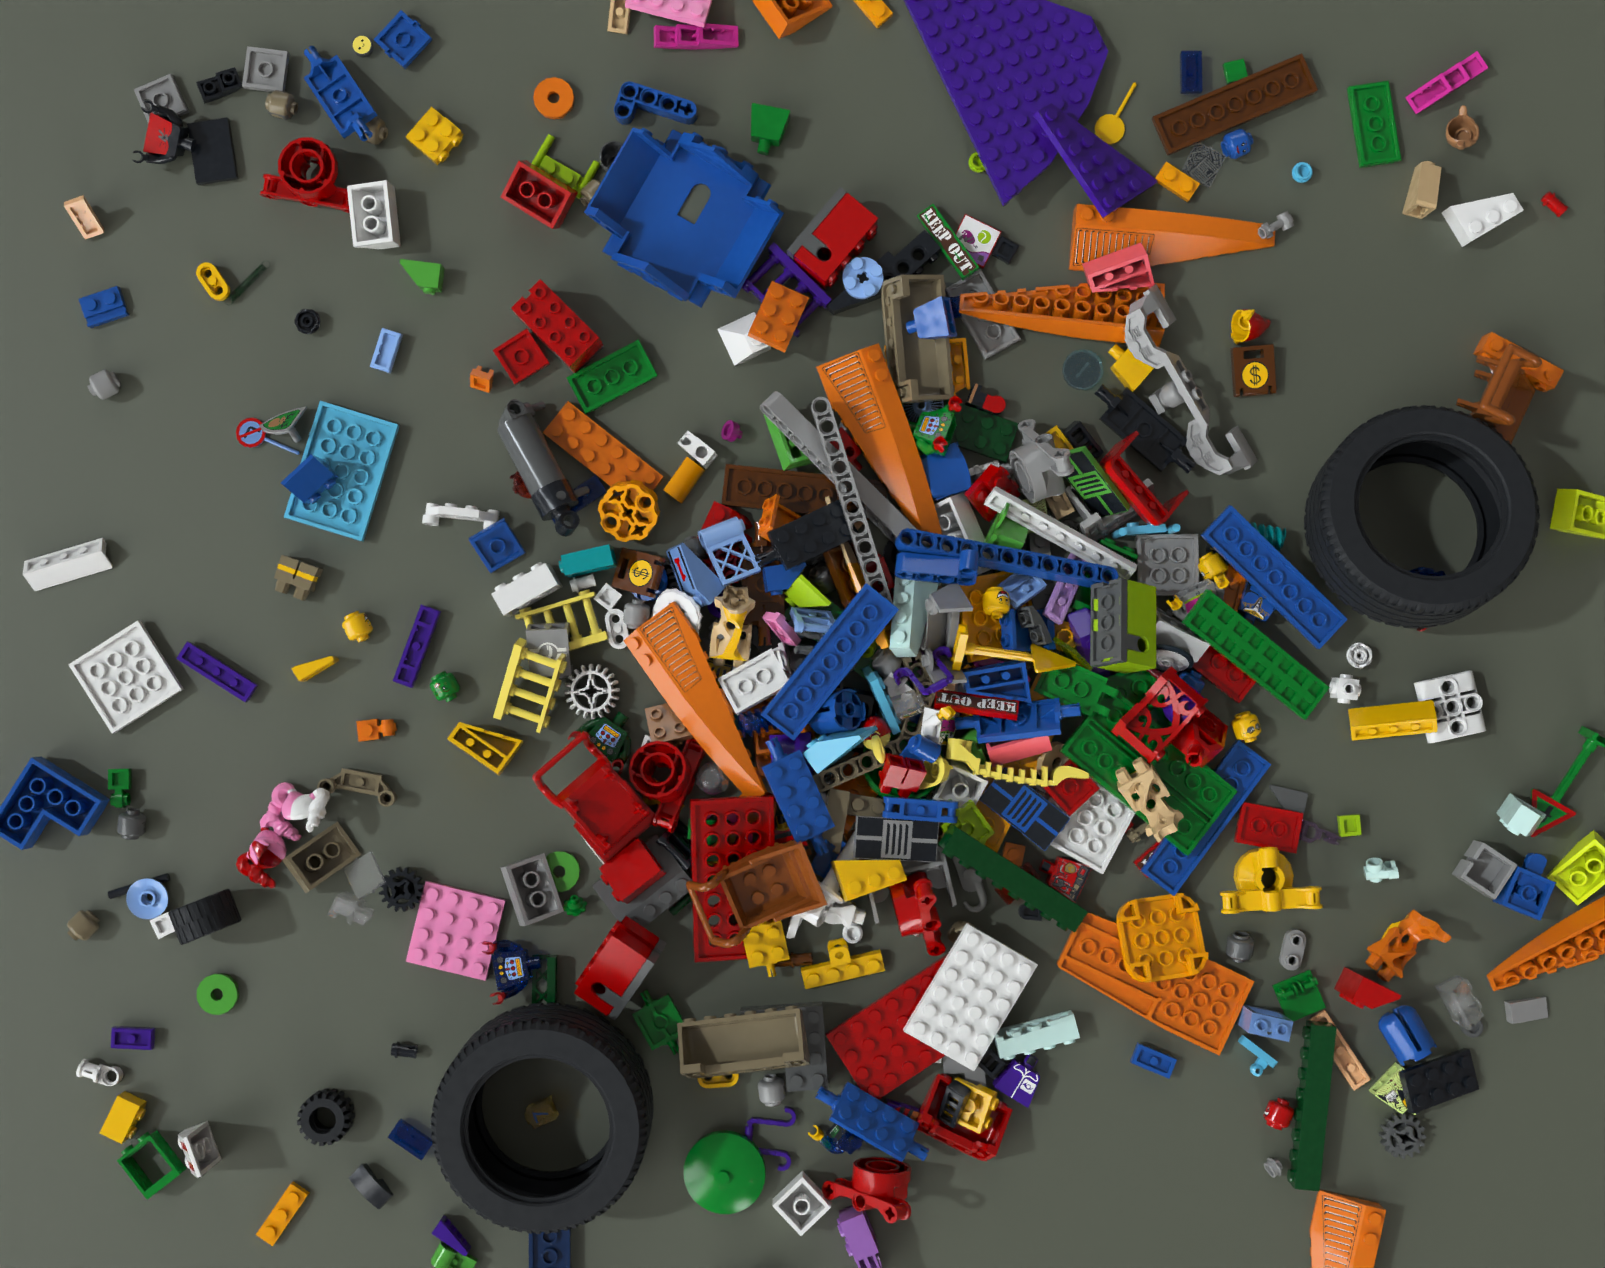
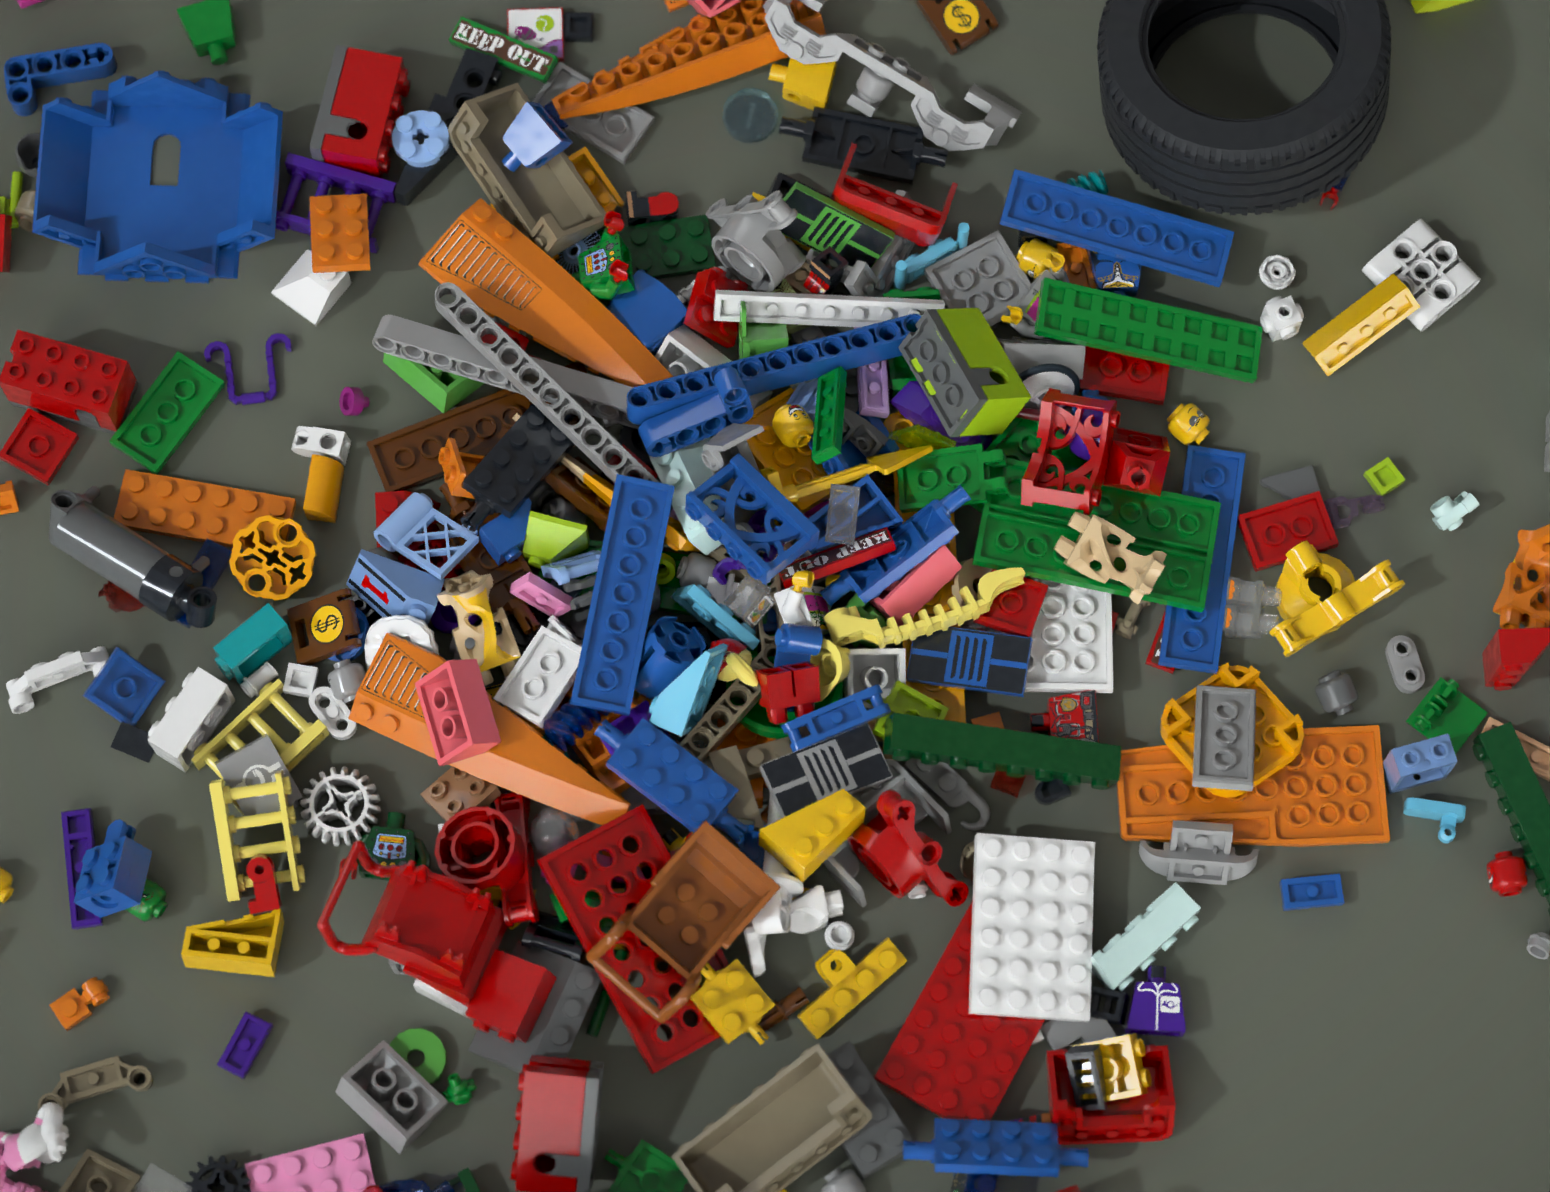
camera: 25 degrees left, 15 degrees down
(432, 663) = (113, 872): none -> blue brick
(461, 809) = (245, 1045): none -> dark purple plate
(486, 581) = (133, 742): none -> black piece
(521, 715) = (263, 874): none -> red leg
(671, 394) = (253, 397): none -> dark purple piece
(689, 680) = (457, 711): none -> coral slope
(952, 647) = (749, 481): none -> blue fence
(995, 681) = (842, 514): none -> clear tile
(1022, 611) = (829, 415): none -> green tile
(1070, 510) = (823, 277): none -> black leg
(1097, 1002) = (1198, 854): none -> light grey plate
(1153, 944) = (1224, 738): none -> light grey tile
(1212, 874) = (1246, 608): none -> clear hips

